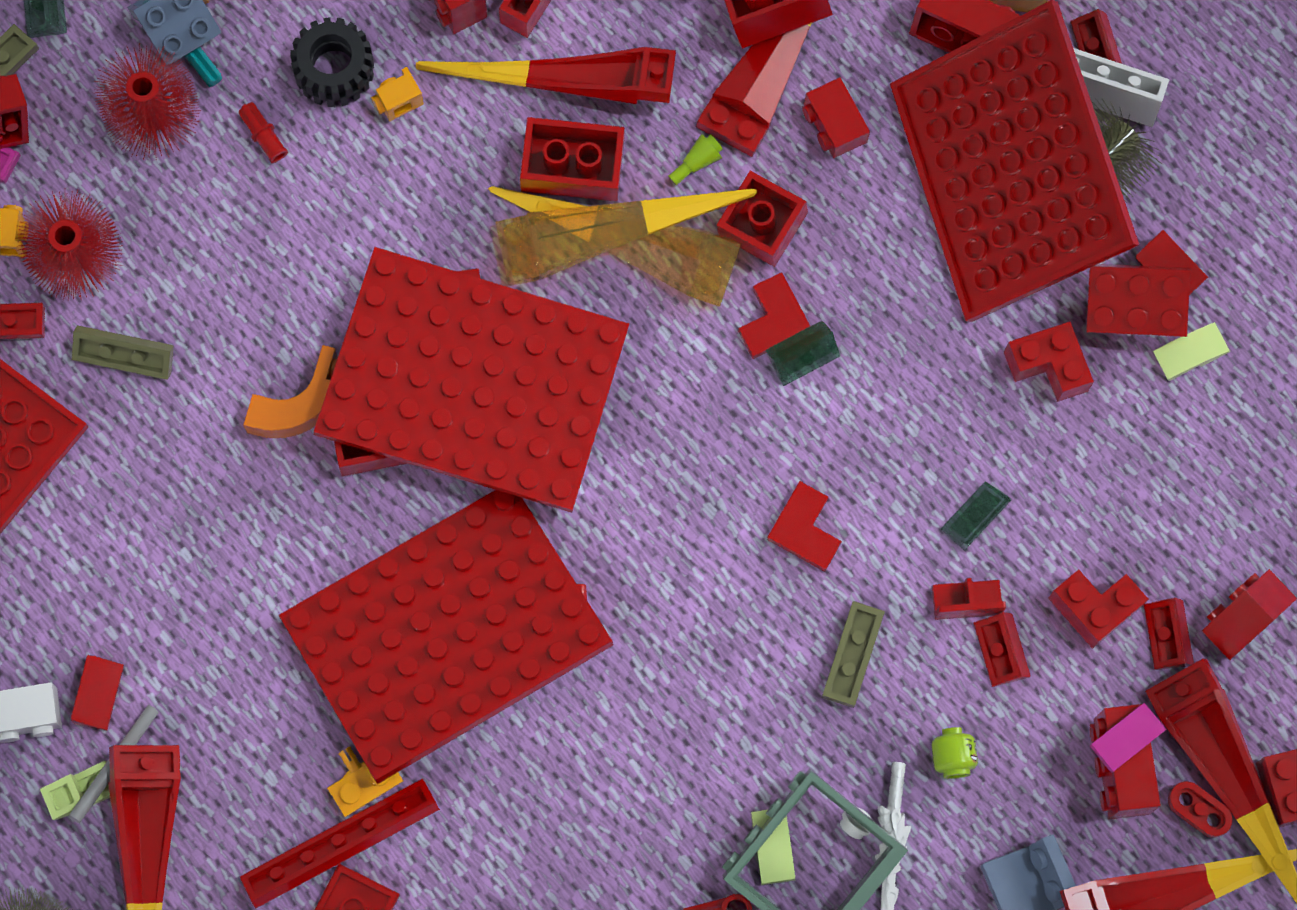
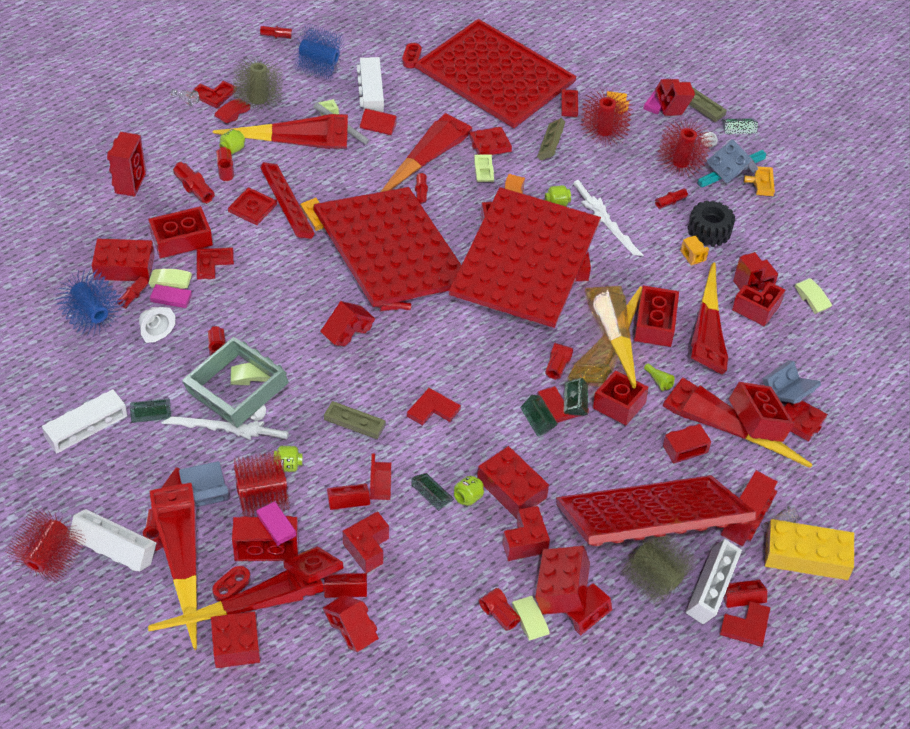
camera: 95 degrees right, 25 degrees down
(94, 58) = (714, 138): none -> white plate
(132, 565) = (438, 139): none -> red plate
(134, 469) = (490, 141): none -> red plate
(212, 478) = (484, 168): none -> yellowish green slope
(279, 591) = (421, 187): none -> red axle
(287, 334) = (558, 195): none -> lime head
(319, 257) = (600, 210): none -> white sword
(653, 685) = (345, 321): none -> red brick
(673, 321) = (559, 358): none -> red piece
(764, 292) = (576, 397): none -> clear green slope
(952, 386) = (512, 481): none -> red brick
(977, 455) = (468, 490): none -> lime head
(1034, 781) = (259, 483): none -> red piece
(1158, 34) = (748, 630): none -> red tile
(1158, 679) = (313, 564): none -> red tile
(1180, 401) = (496, 604): none -> red piece

